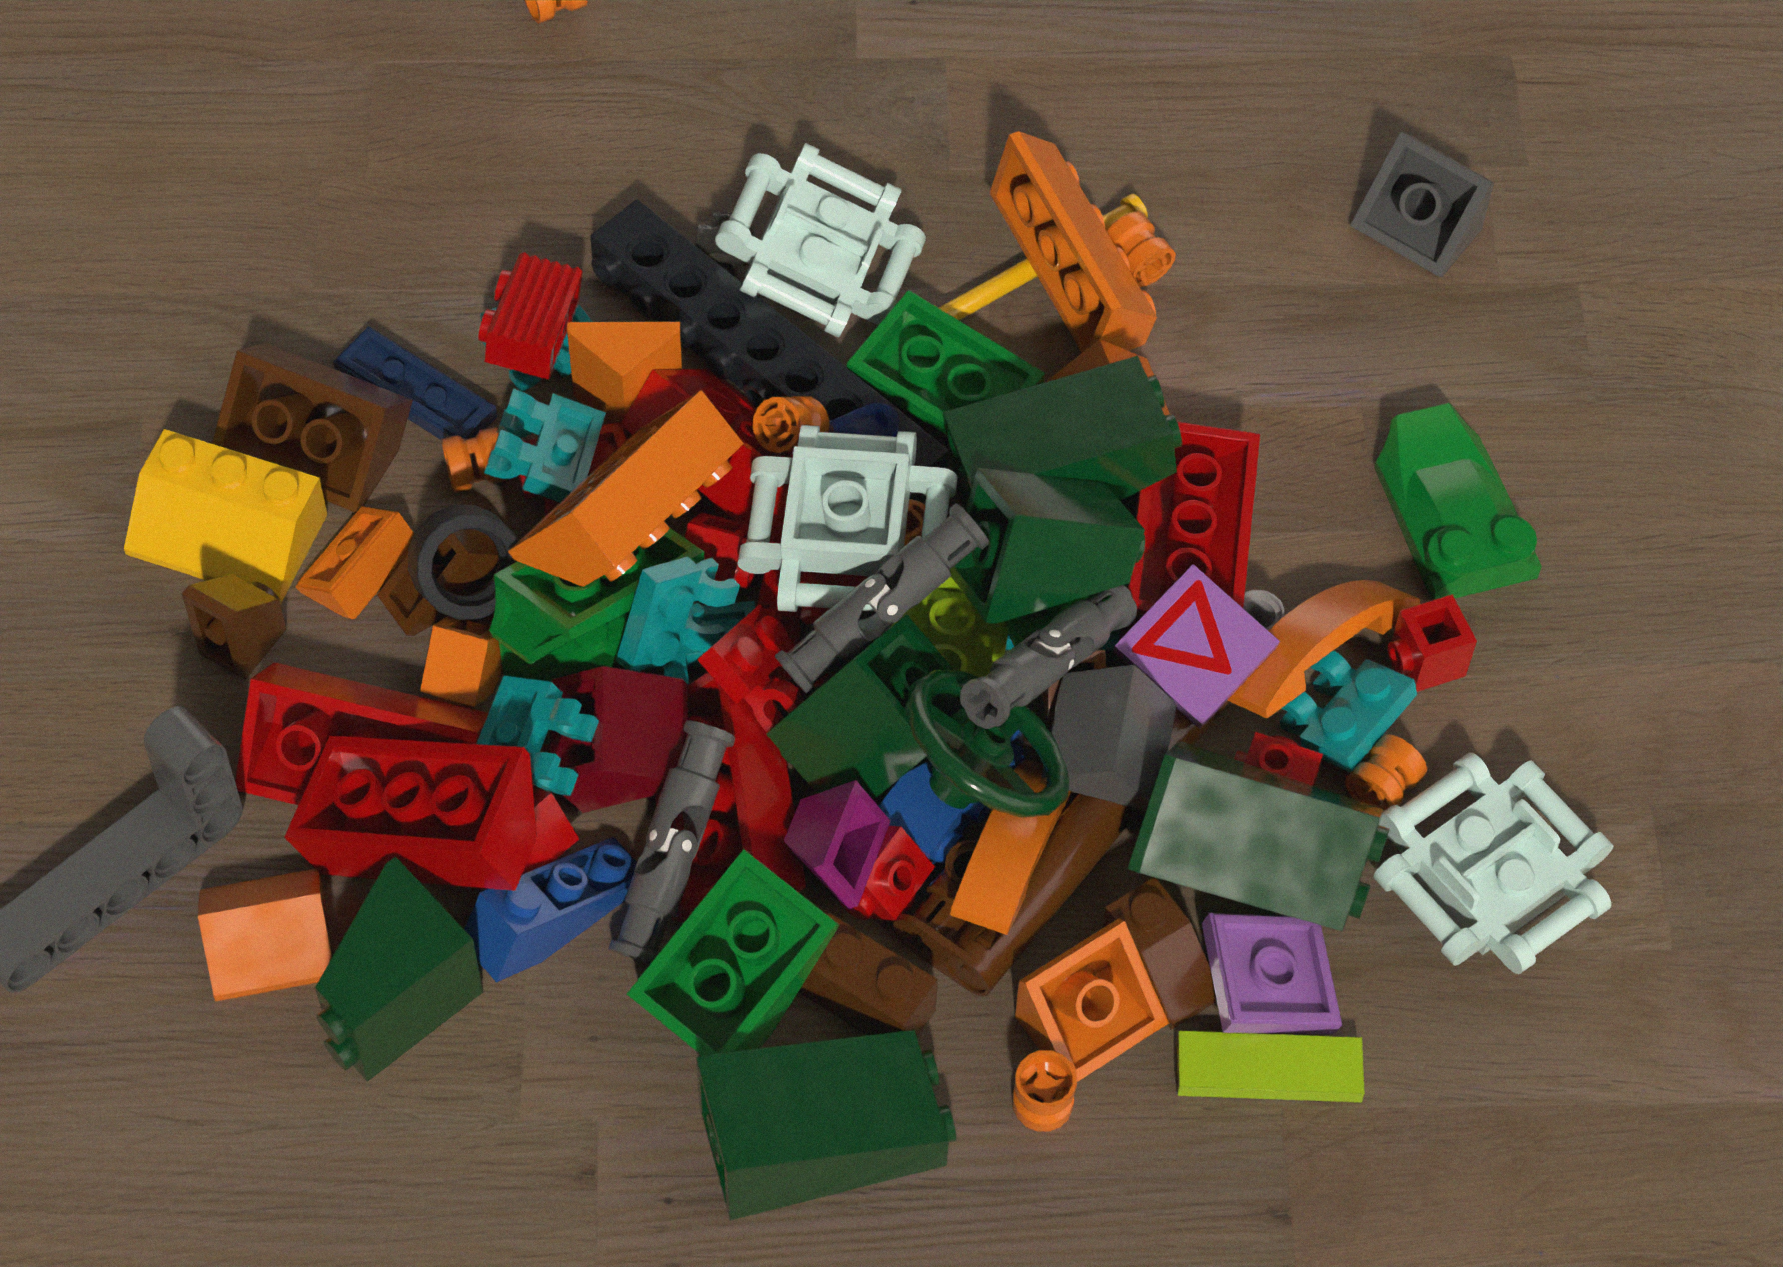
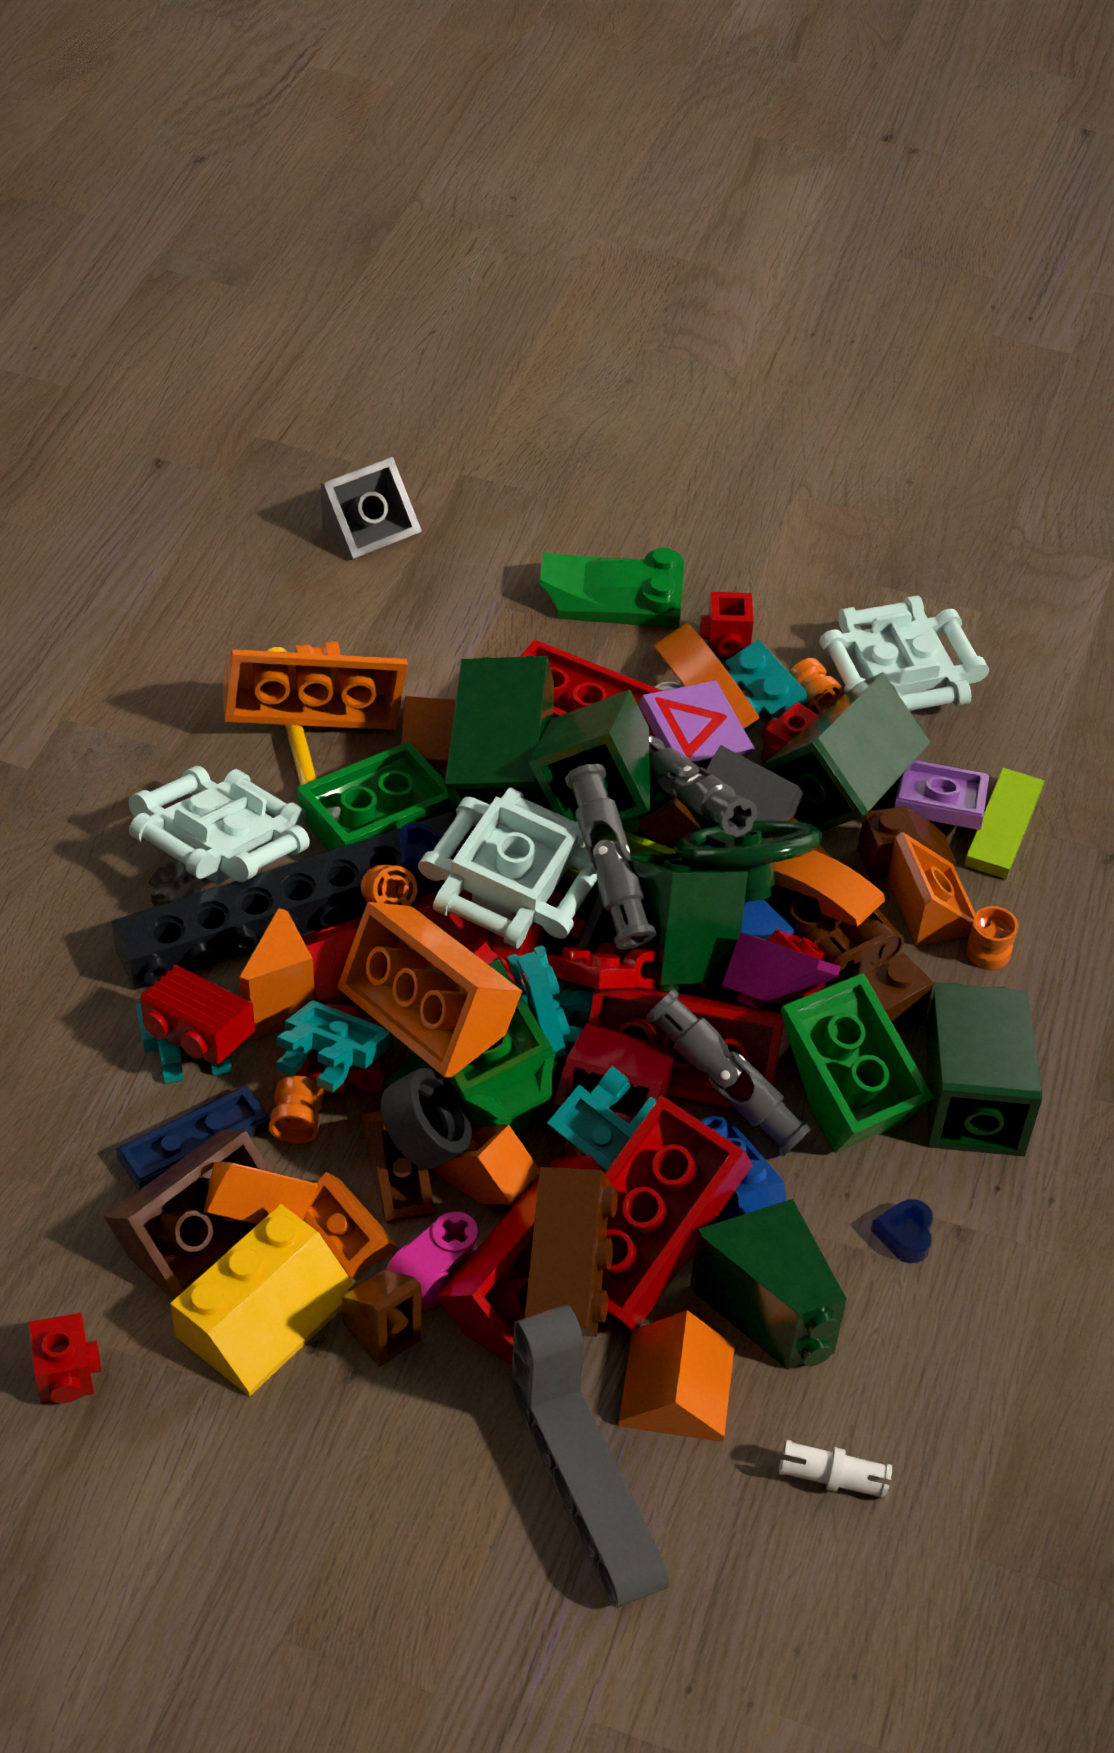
camera: 70 degrees left, 10 degrees down
(96, 377) = (63, 1358): none -> red brick
(199, 1113) = (835, 1469): none -> white pin
(325, 743) = (572, 1244): none -> reddish brown brick
(329, 647) = (437, 1254): none -> dark pink piece
(335, 458) = (253, 1193): none -> orange slope
(559, 1110) = (906, 1230): none -> clear blue tile

